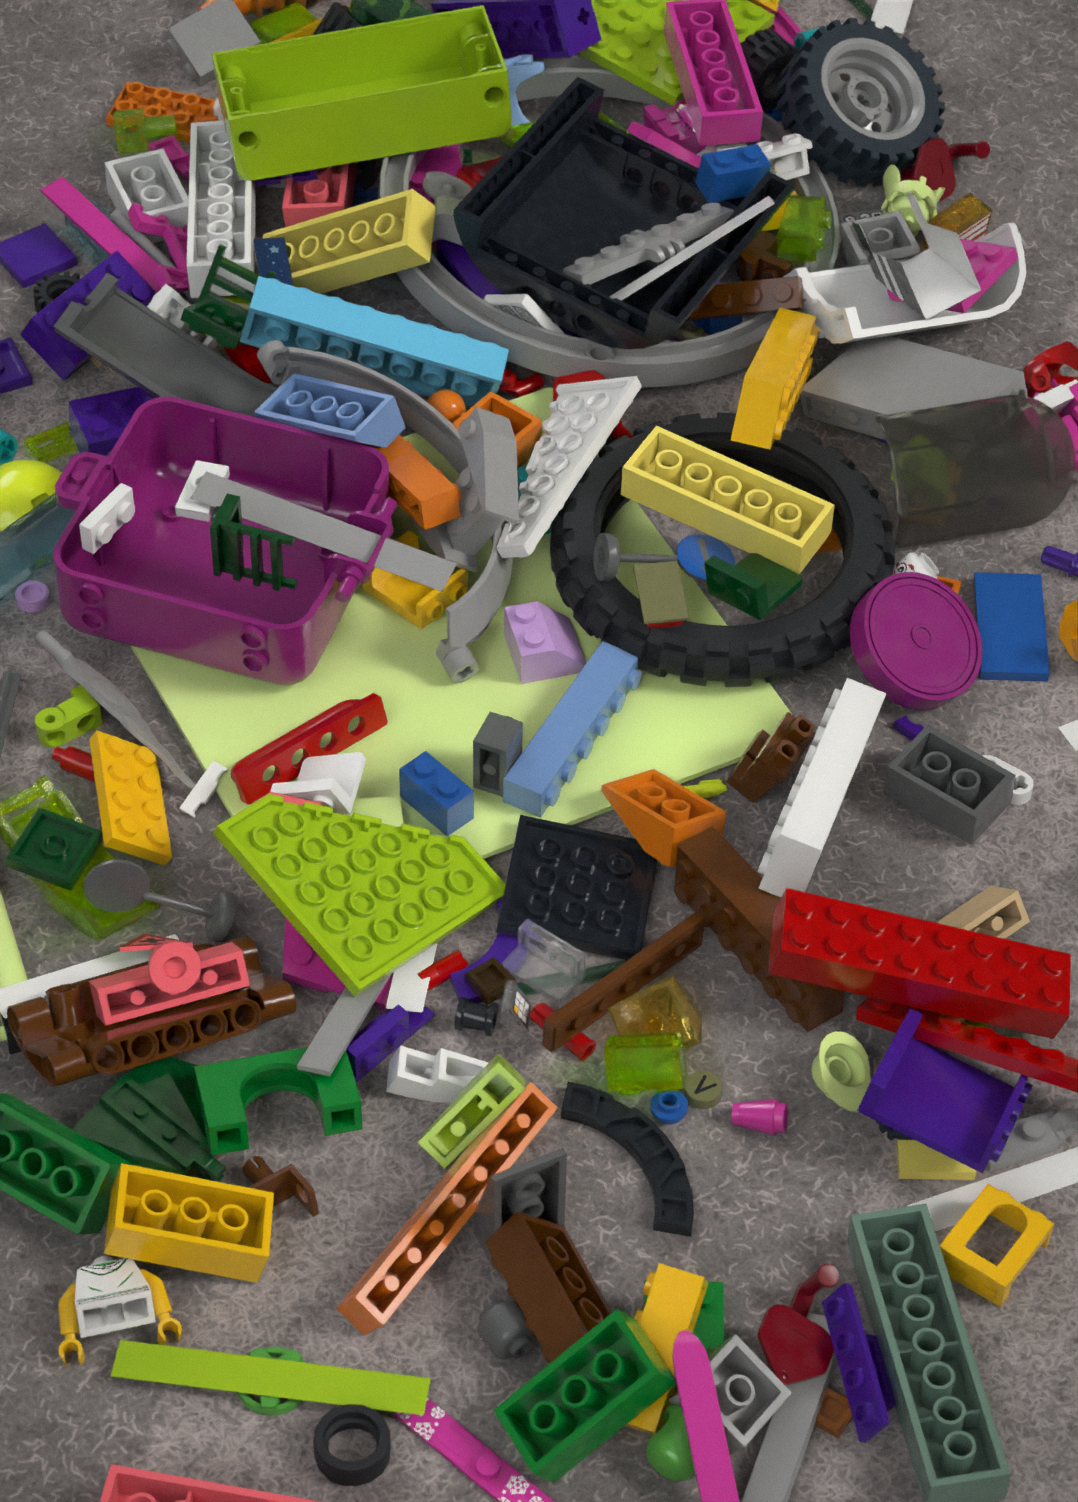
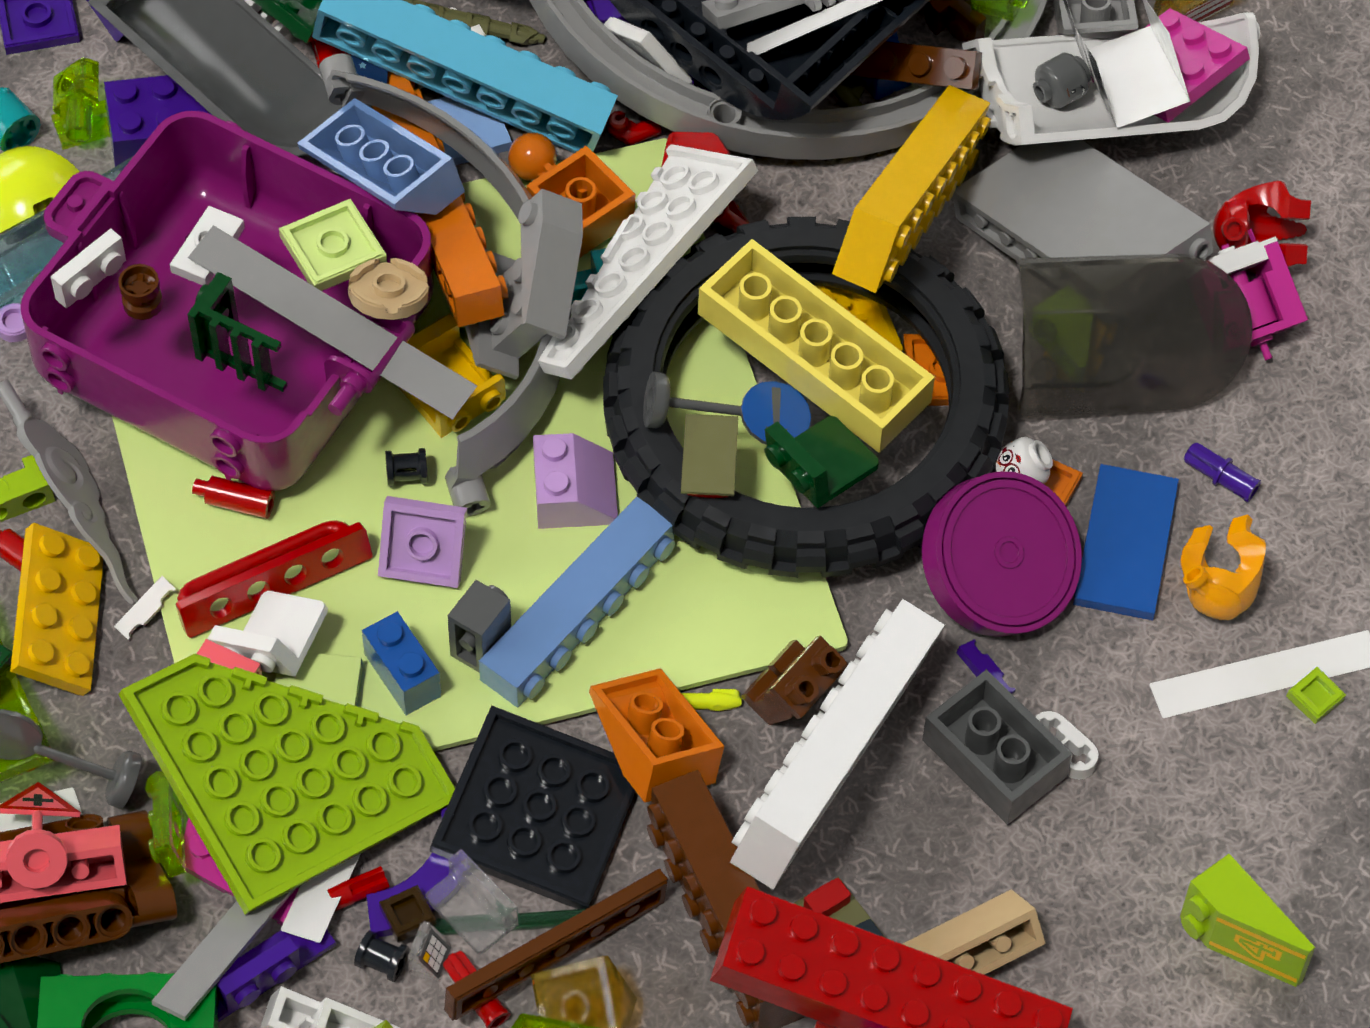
camera: 10 degrees right, 10 degrees up
(44, 417) = (76, 97): none -> clear neon green piece
(156, 529) = (140, 291): none -> reddish brown wheel
(259, 693) = (235, 496): none -> red cylinder
(266, 941) = (167, 825): none -> clear neon green hinge
(308, 476) = (331, 244): none -> yellowish green tile
(365, 500) = (388, 289): none -> tan tile
(388, 648) = (406, 467): none -> black bush
(431, 699) = (422, 541): none -> lavender tile
(869, 294) = (1061, 80): none -> dark grey head

